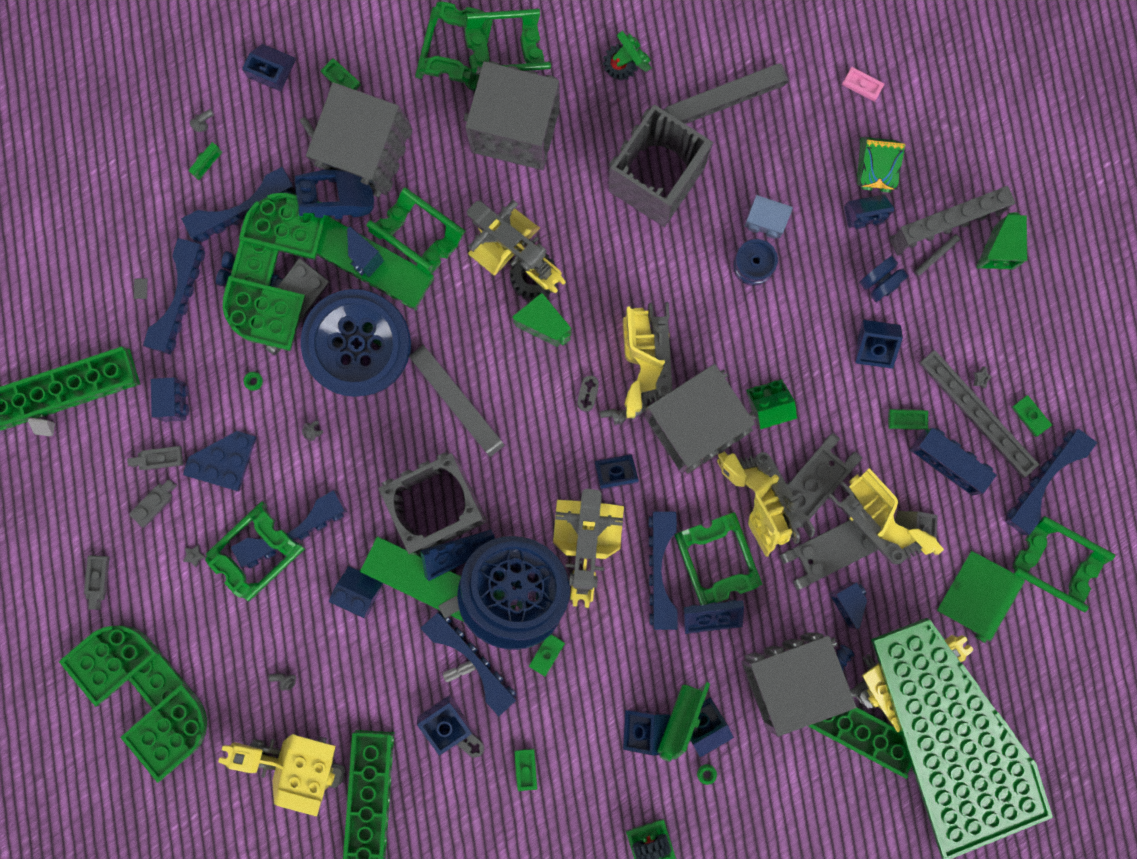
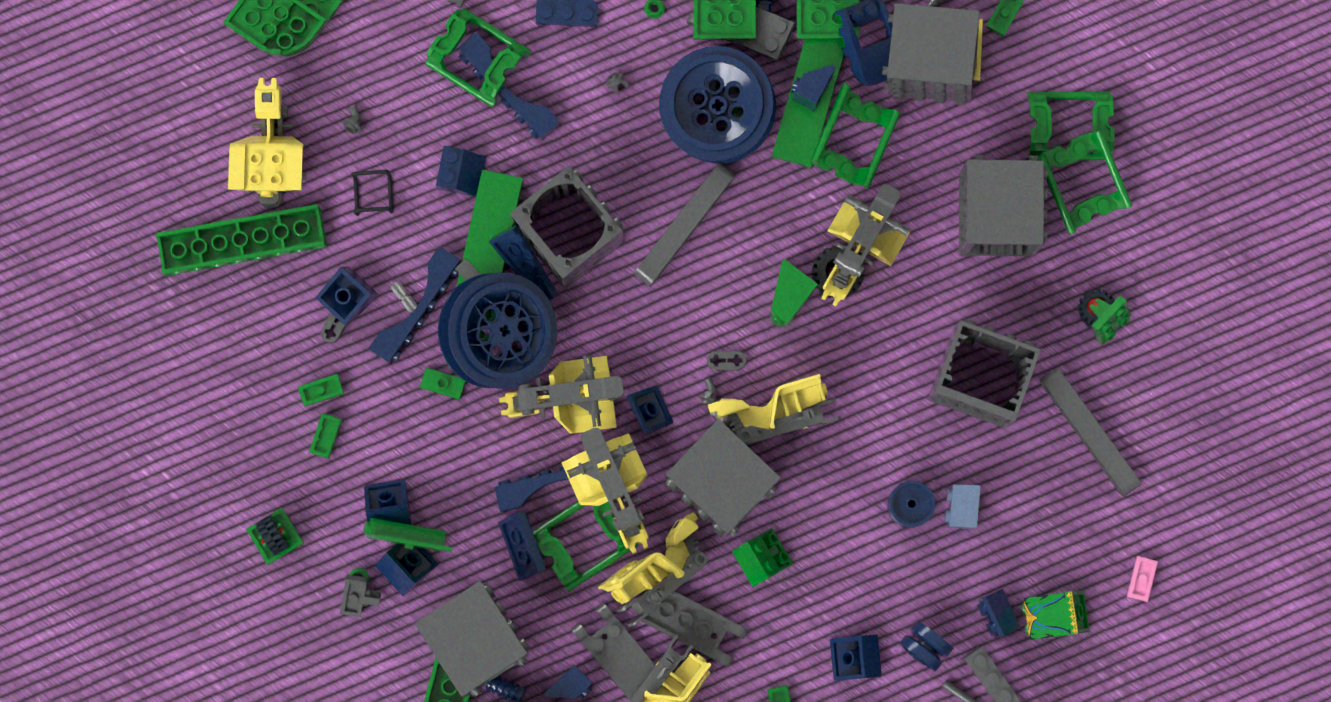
camera: 75 degrees right, 0 degrees up
(368, 697) = (388, 208): none -> black piece
(569, 775) = (325, 435): none -> green plate
(670, 521) = (606, 474): none -> piece
(723, 780) = (357, 595): none -> dark grey hinge

